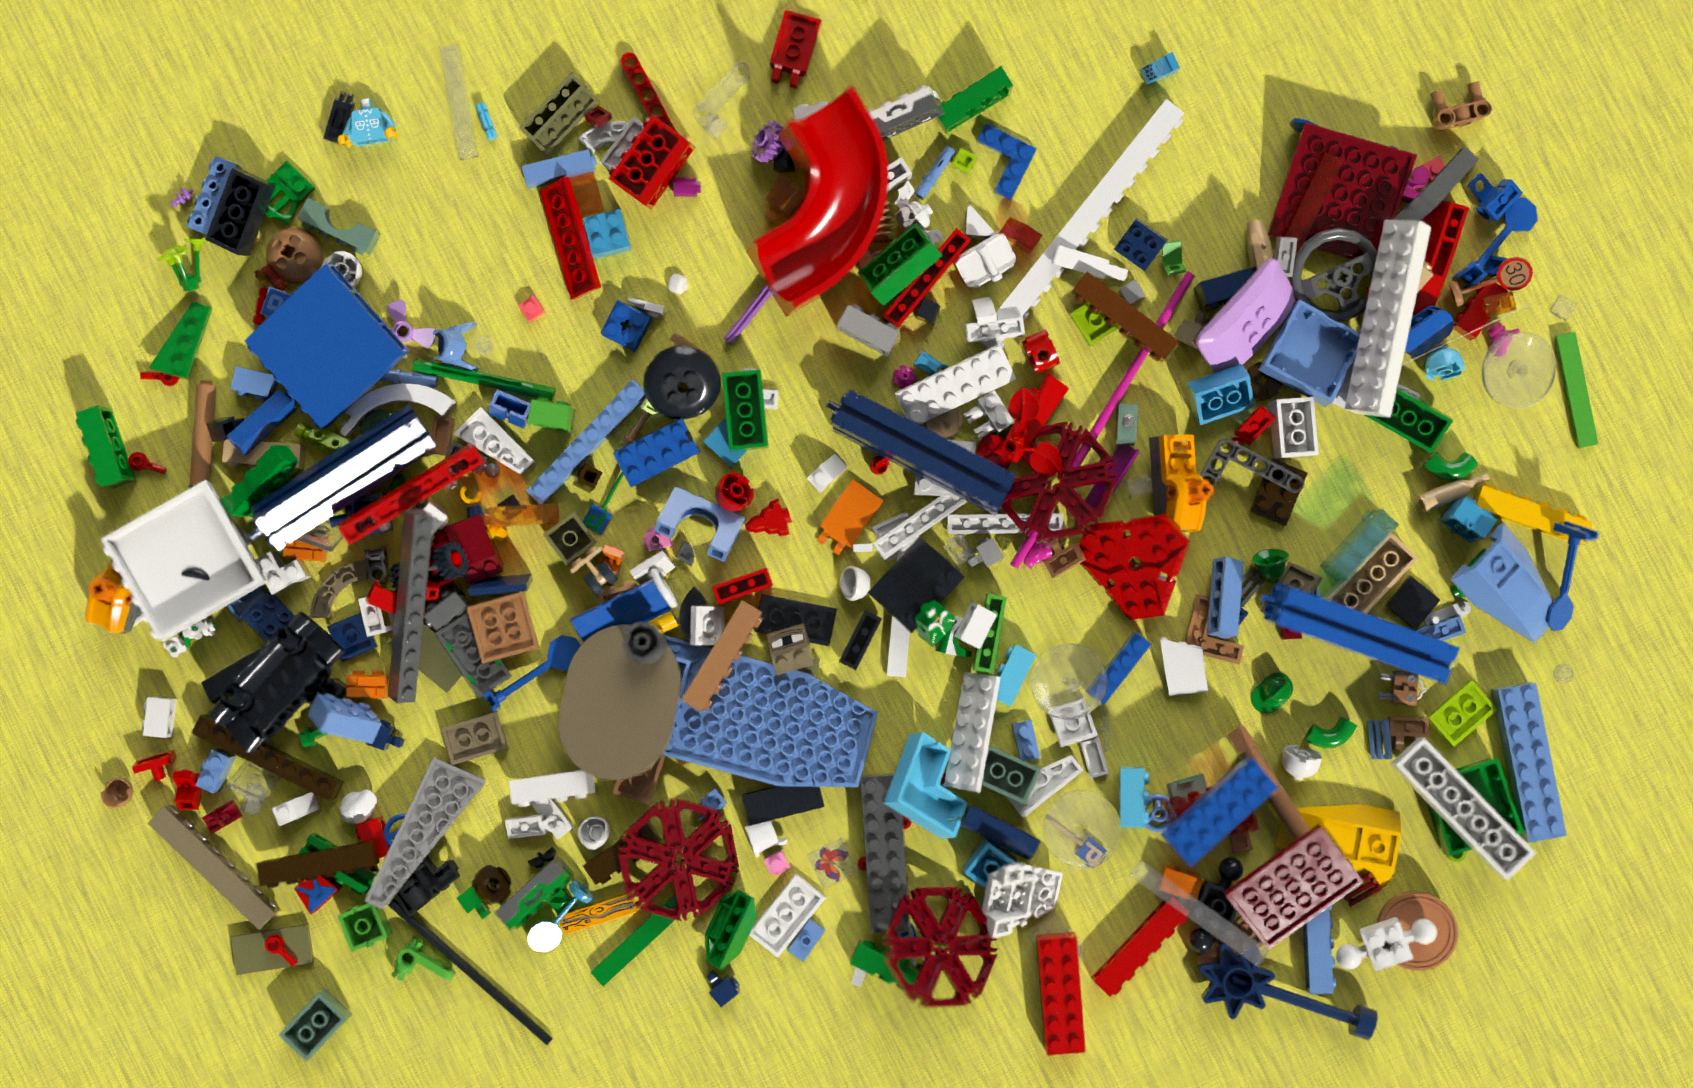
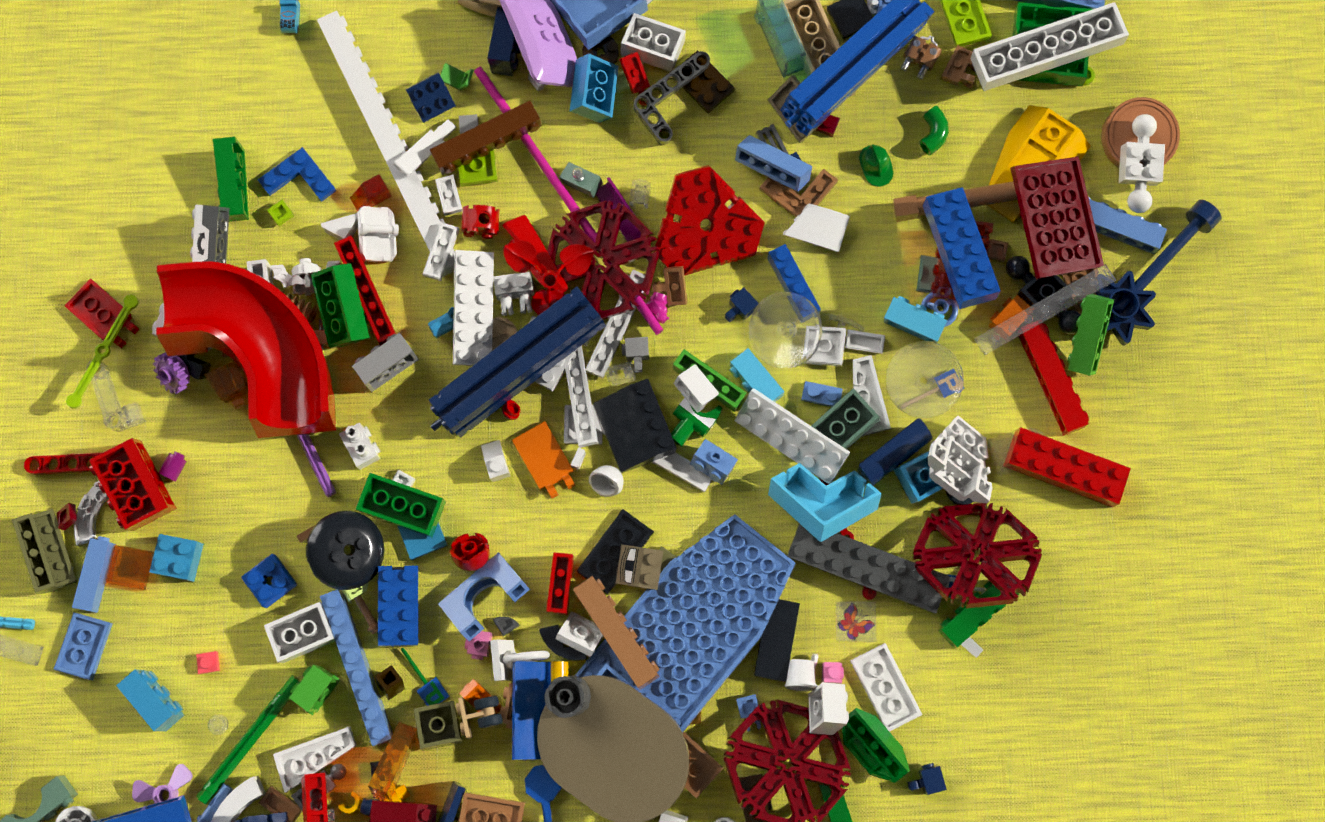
camera: 65 degrees left, 10 degrees down
(452, 345) = (201, 752): medium blue helmet -> none
(476, 278) = (151, 700): none -> dark azure brick
(494, 191) = (83, 646): none -> medium blue tile
(510, 407) = (288, 724): blue piece -> none
(570, 238) = (161, 594): red plate -> none
(593, 377) = (299, 633): none -> white brick
(622, 143) = (100, 503): white tile -> none
(653, 309) = (265, 549): white plate -> none
(677, 283) = (256, 516): white piece -> none
(702, 69) = (74, 400): none -> lime piece
(742, 873) = (828, 708): none -> white brick
(772, 520) = (512, 530): red rock -> none
(783, 345) = (360, 446): none -> white brick
(806, 940) = (917, 680): medium blue plate -> none
(860, 640) = (661, 499): black brick -> none
(904, 372) = (443, 352): dark pink plant -> none
(916, 671) = (713, 461): none -> medium blue brick
(928, 311) = (395, 304): black brick -> none
(930, 179) = (280, 248): medium blue pin -> none
(933, 622) = (675, 422): green torso -> none
(984, 310) = (419, 253): white tile -> none
(1054, 308) = (448, 195): none -> white plate
(1076, 630) = (742, 304): none -> dark blue brick
(1175, 483) = (651, 159): light orange piece -> none
(1188, 331) = (528, 88): dark tan brick -> none
(1194, 964) = (1090, 334): none -> bright green brick
(1271, 563) = (762, 113): green hat -> none
(1301, 762) = (949, 166): white cylinder -> none
(1376, 739) = (955, 99): medium blue tile -> none
(1377, 888) = (1090, 163): dark red tile -> none

